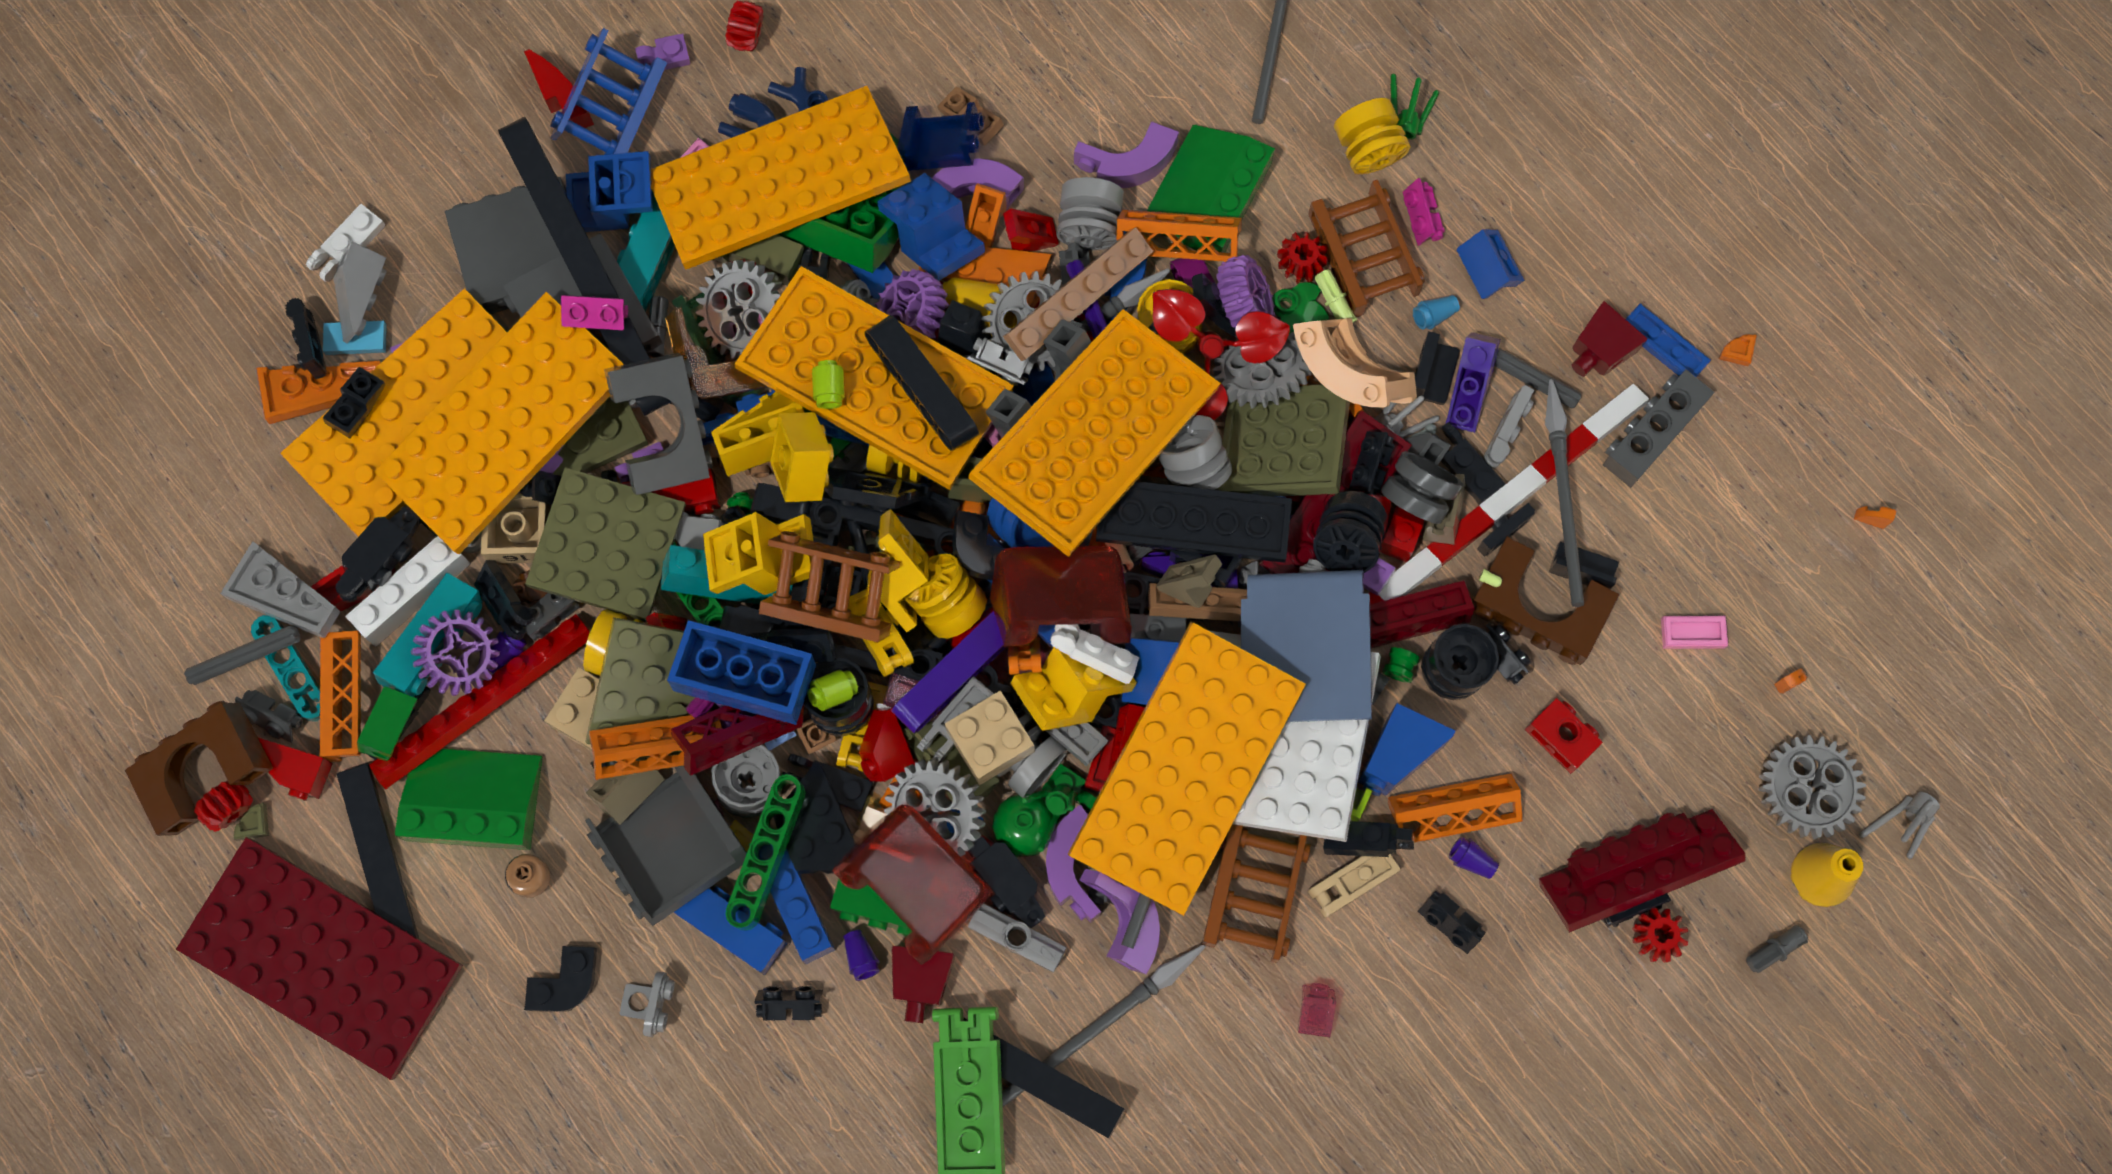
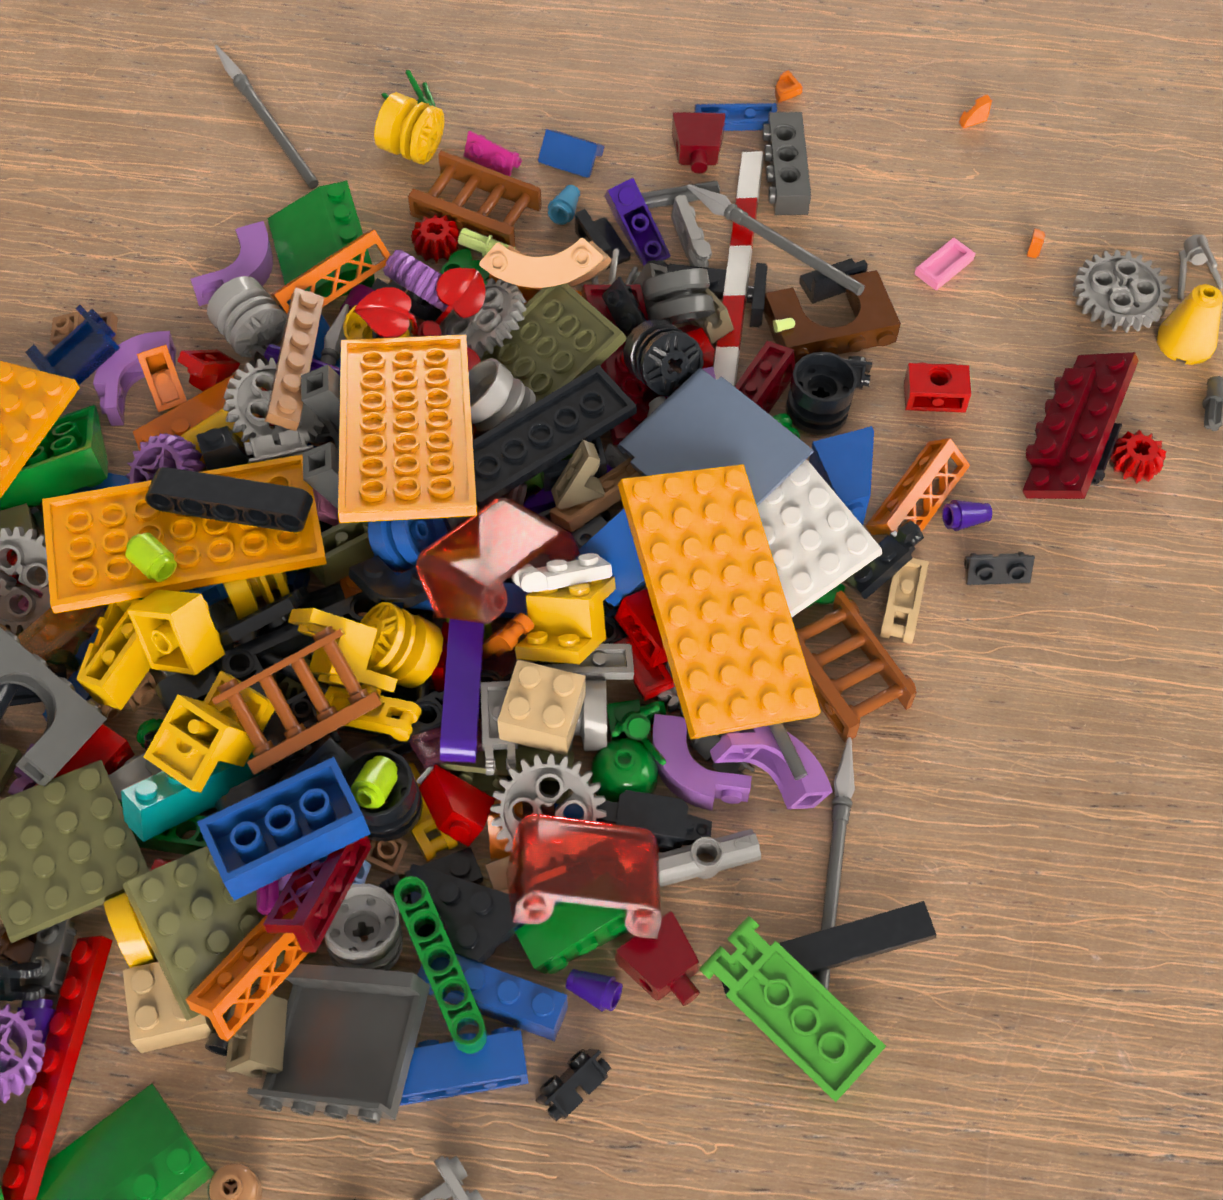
camera: 45 degrees left, 15 degrees down
(931, 226) = (124, 410): blue bracket -> none
(1317, 1010) = (977, 708): clear pink bracket -> none

